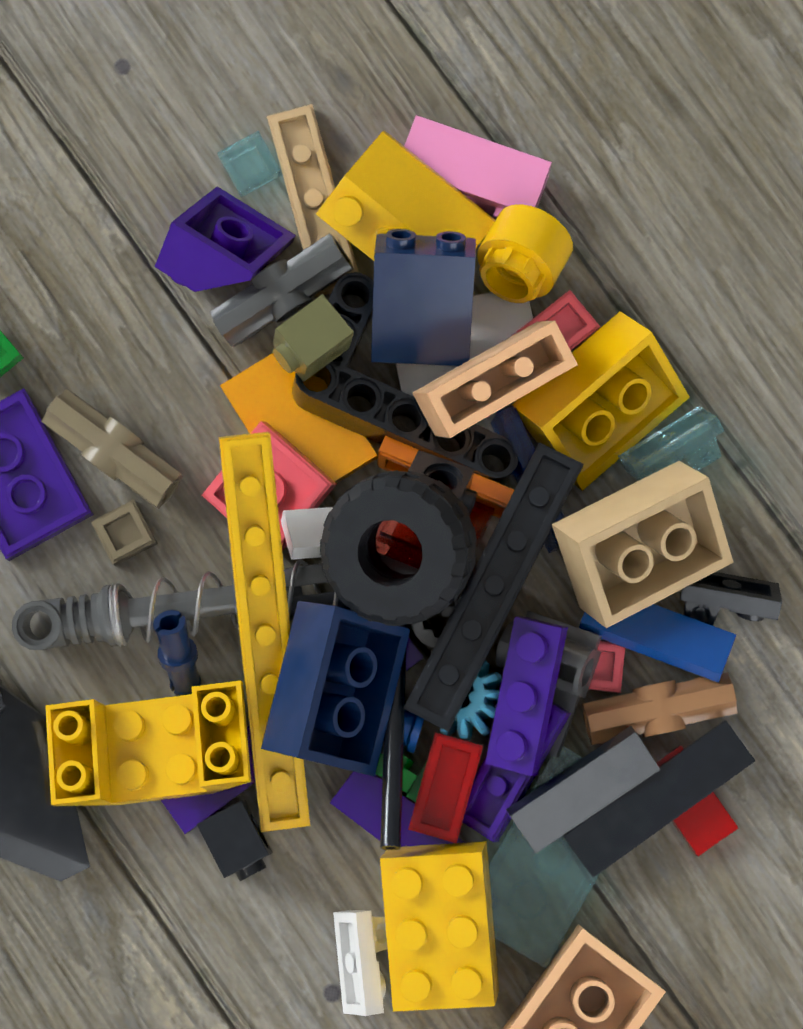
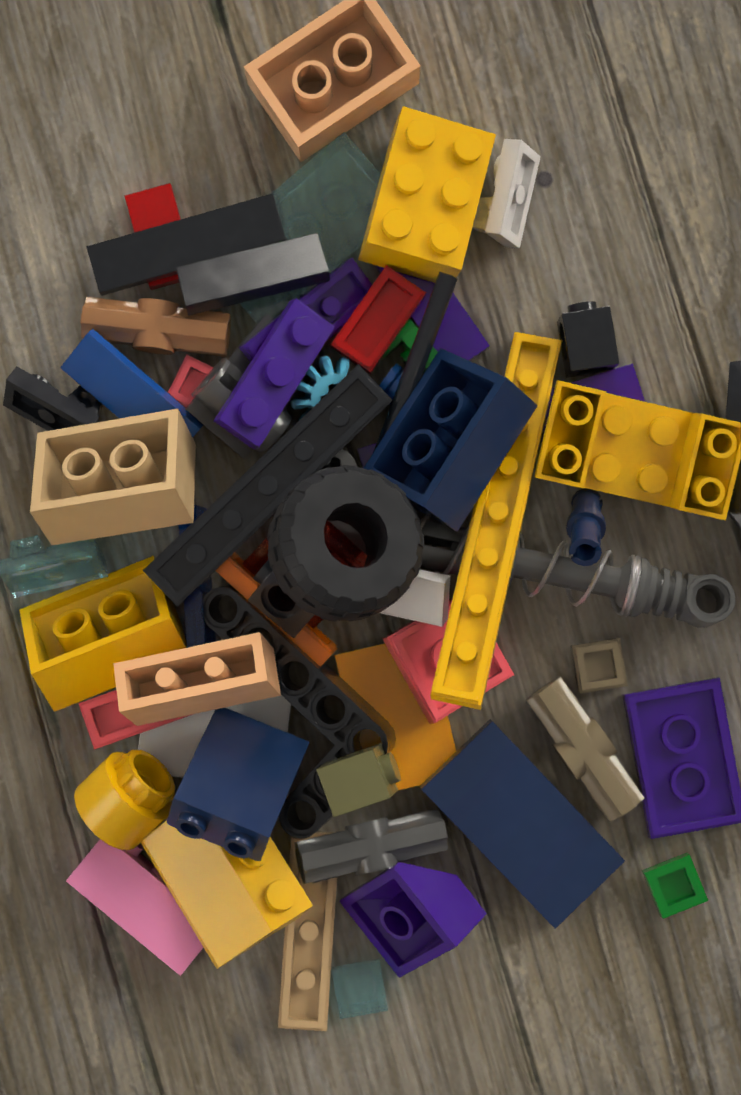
camera: 165 degrees left, 5 degrees up
(149, 360) = (522, 823): none -> dark blue tile

